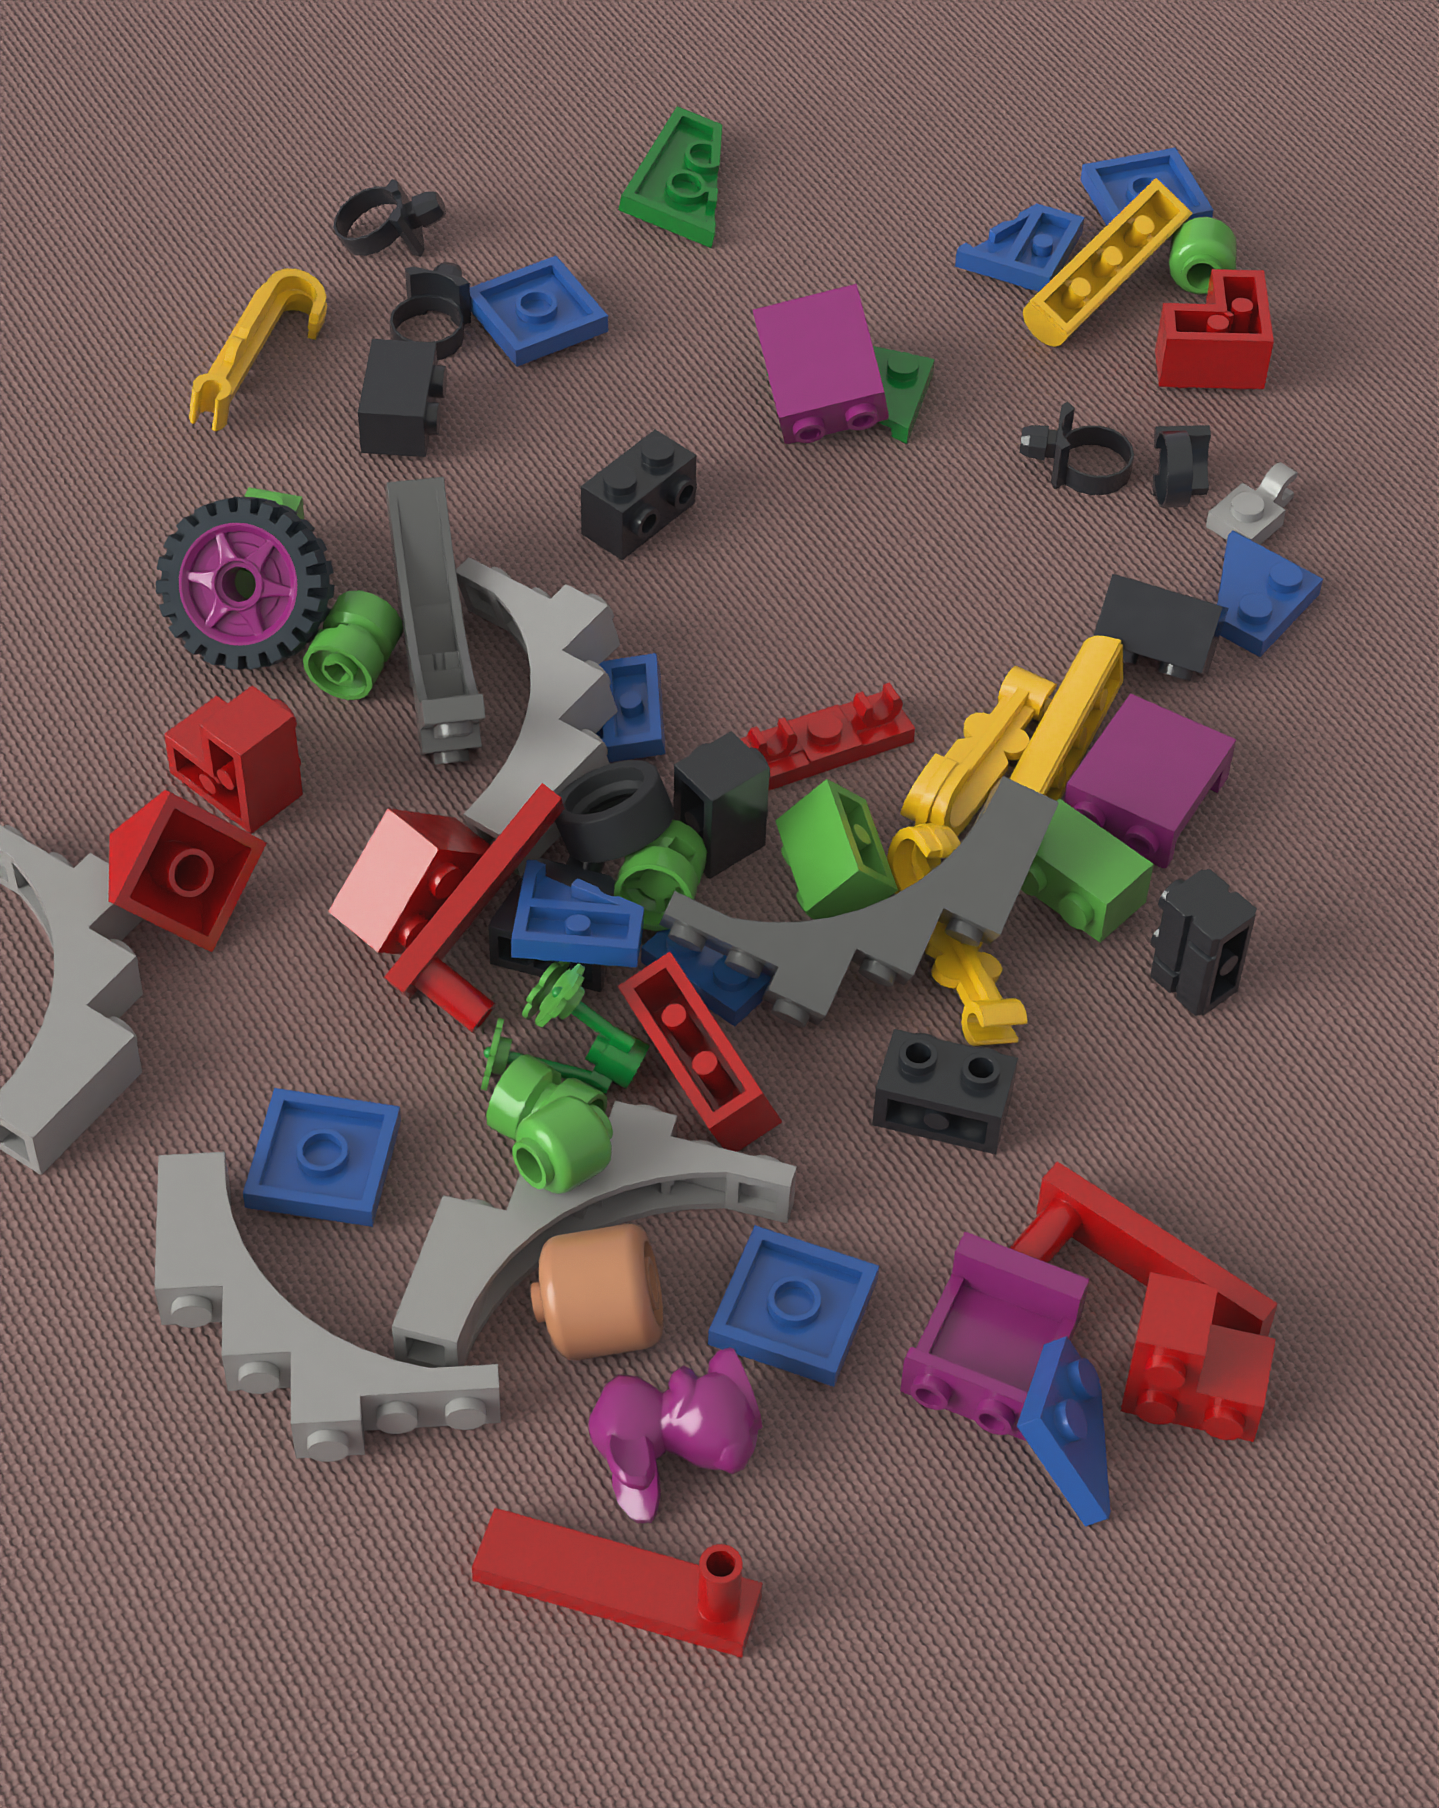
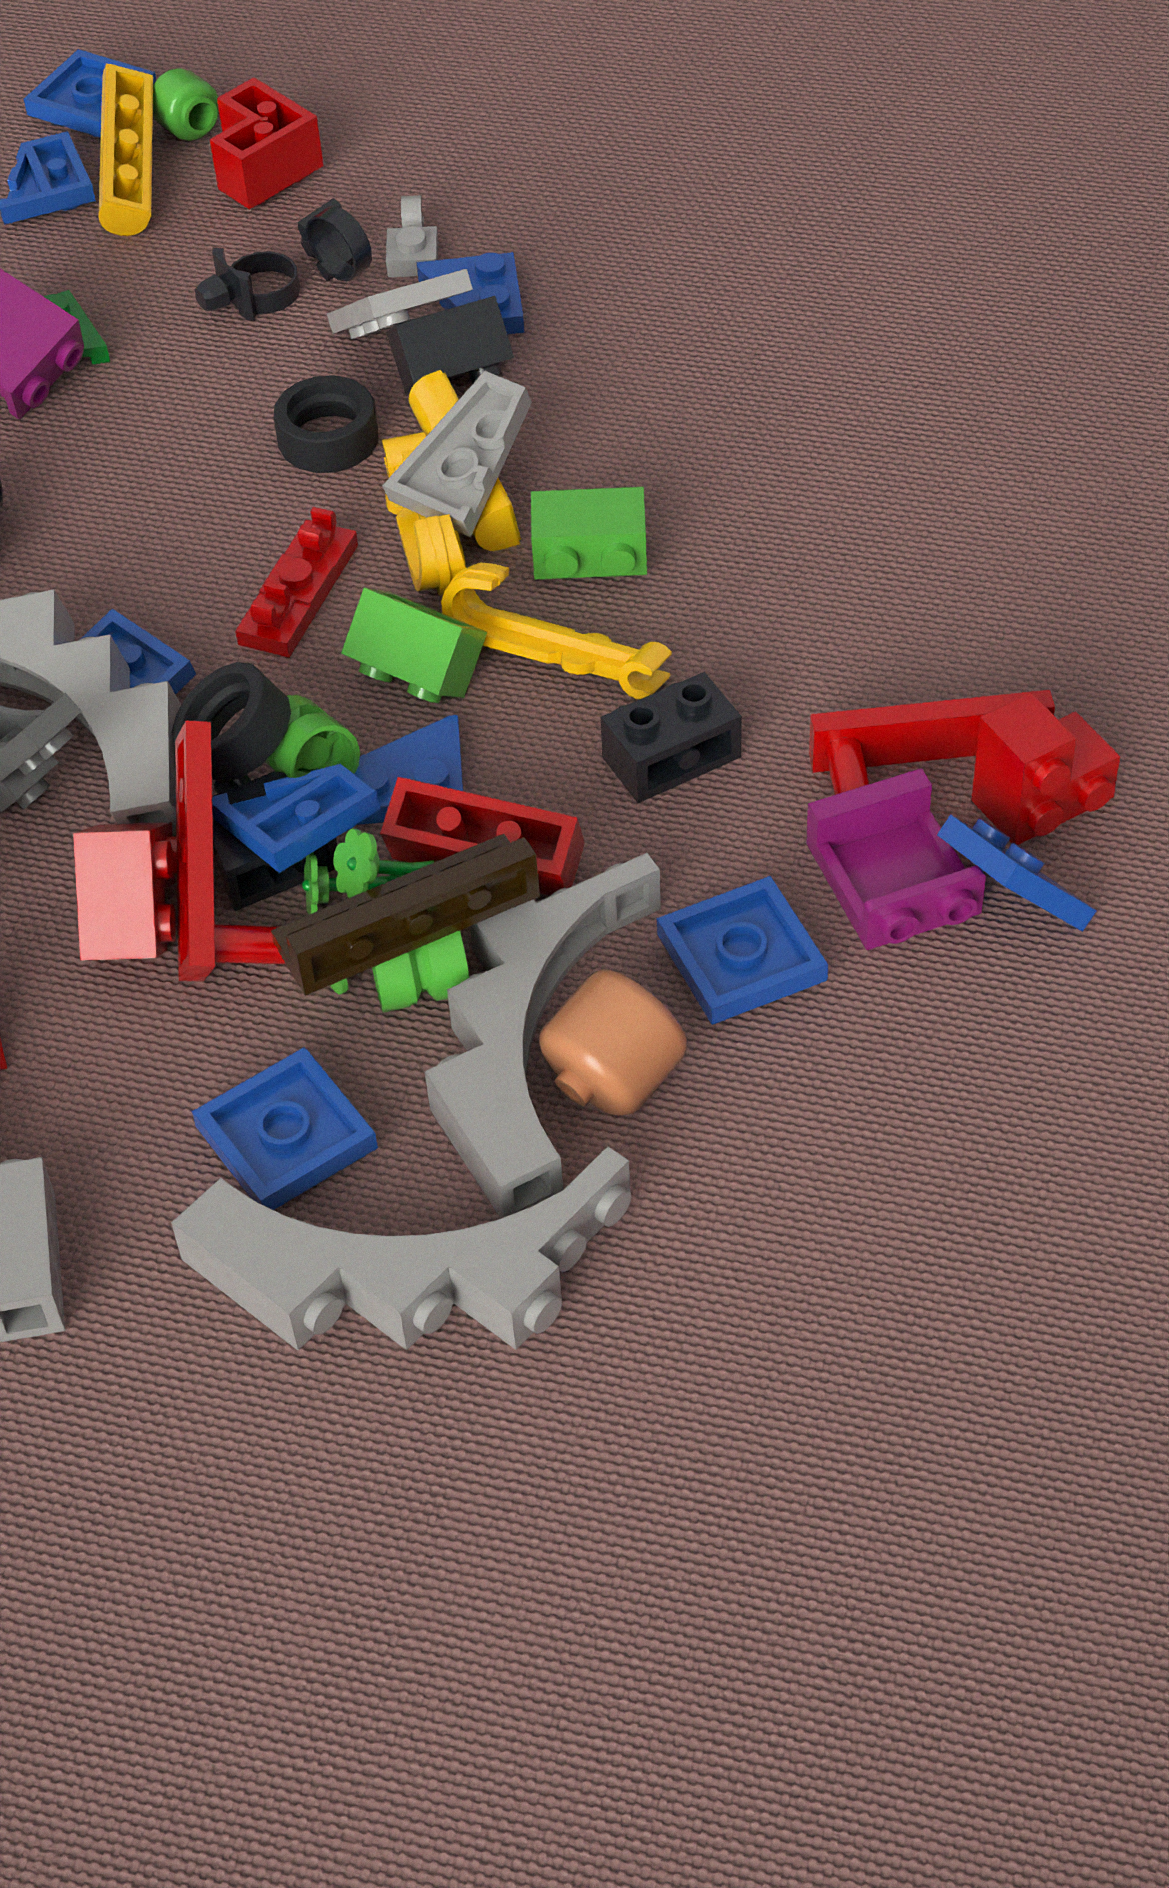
camera: 40 degrees left, 0 degrees up
(553, 1061) = (408, 912): none -> dark brown fence
(563, 1144) = (485, 958): bright green head -> none
(621, 1582) = (849, 1219): red piece -> none
(701, 1419) = (782, 1066): magenta animal -> none
(724, 799) = (295, 649): black brick -> none
(809, 958) = (547, 595): dark grey arch -> none
(1002, 589) = (321, 398): none -> black tyre
(1043, 725) = (462, 454): none -> light grey wing
(1128, 551) = (392, 306): none -> light grey wing
(1149, 776) = (566, 444): magenta panel -> none
(1201, 941) = (728, 512): black brick -> none

